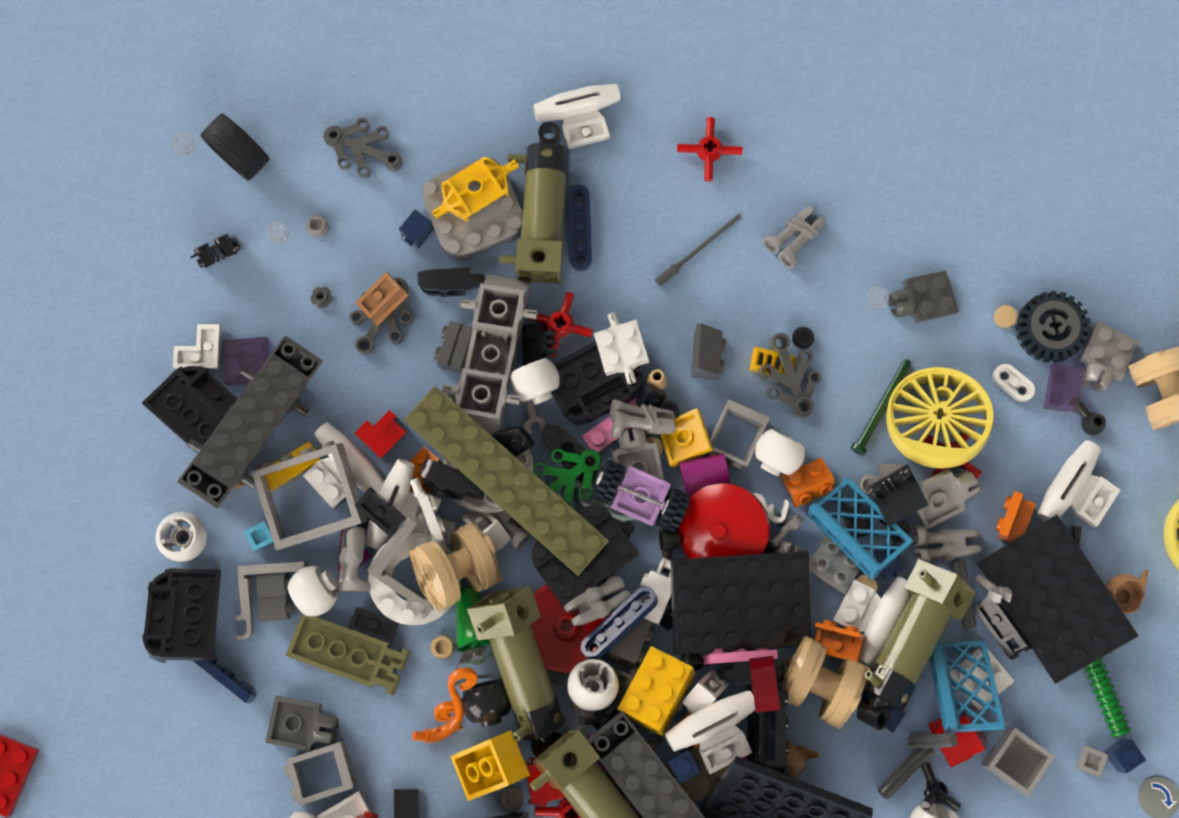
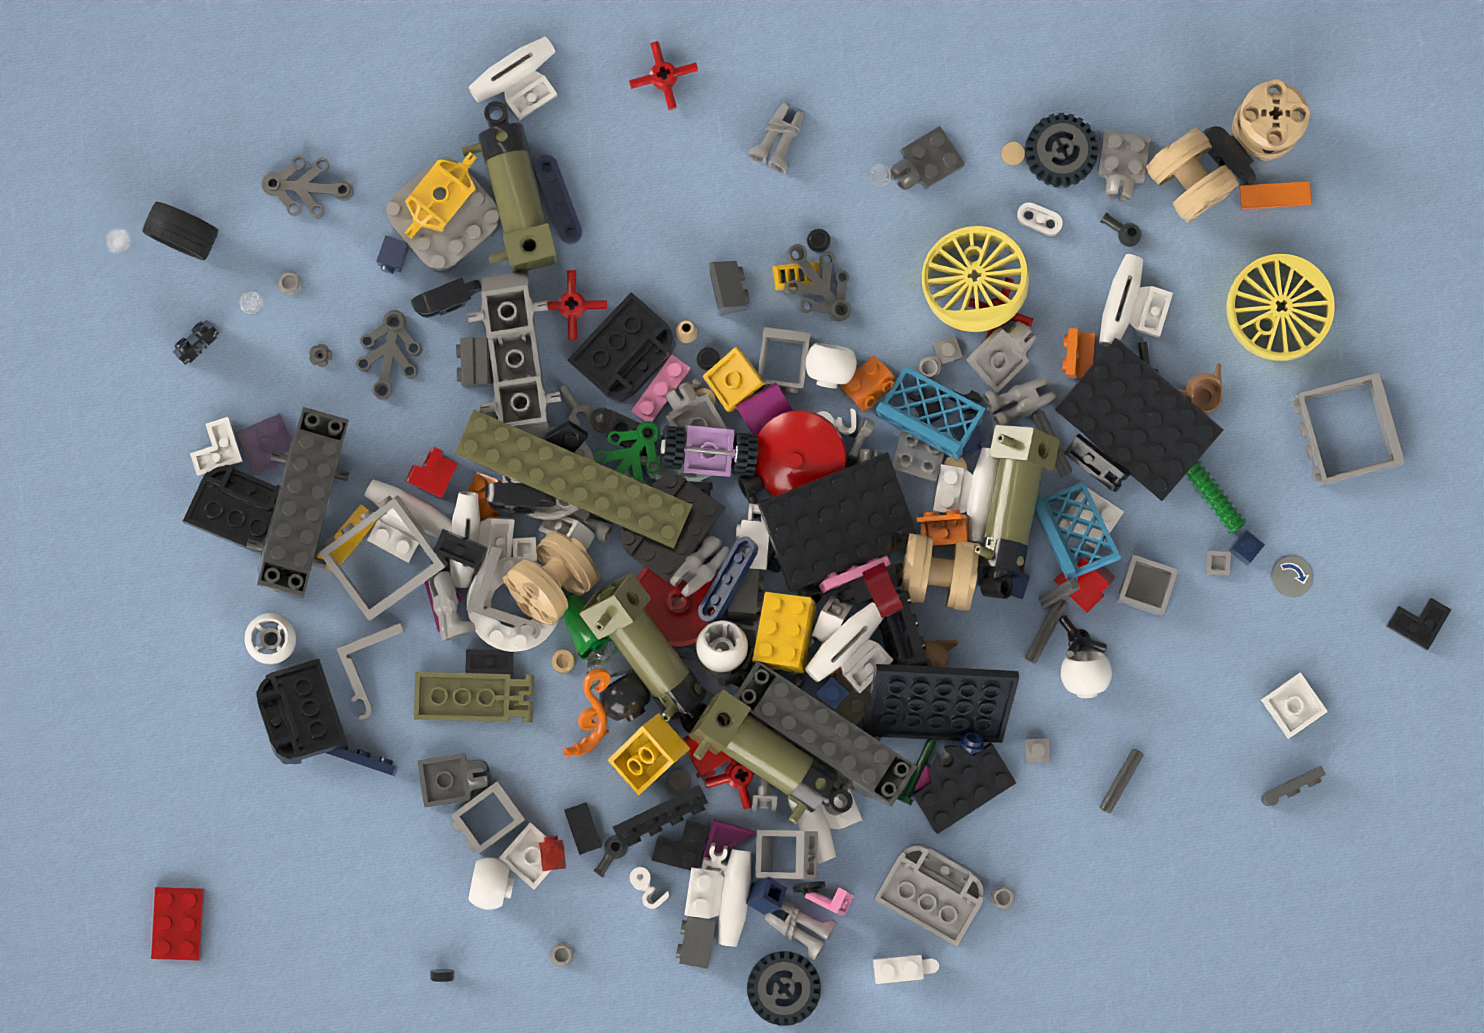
camera: 25 degrees left, 5 degrees up
(259, 536) = (346, 613): medium azure plate -> none
(273, 597) = (381, 667): dark grey brick -> none
(313, 590) = (420, 647): white wheel -> none
(382, 299) = (384, 337): medium nougat plate -> none
(428, 506) = (505, 529): white plate -> none
(535, 381) = (568, 372): white wheel -> none
(537, 342) = (555, 334): black hinge -> none
(621, 348) = (641, 310): white plate -> none
(645, 417) = (695, 372): light grey piece -> none
(651, 396) = (687, 351): black plate -> none
(661, 279) = (667, 211): dark grey piece -> none
(859, 447) = (908, 332): dark green bar -> none
(897, 495) = (957, 369): black hinge -> none
(995, 593) = (1078, 432): light grey bar -> none
(1064, 388) = (1090, 209): clear purple plate -> none

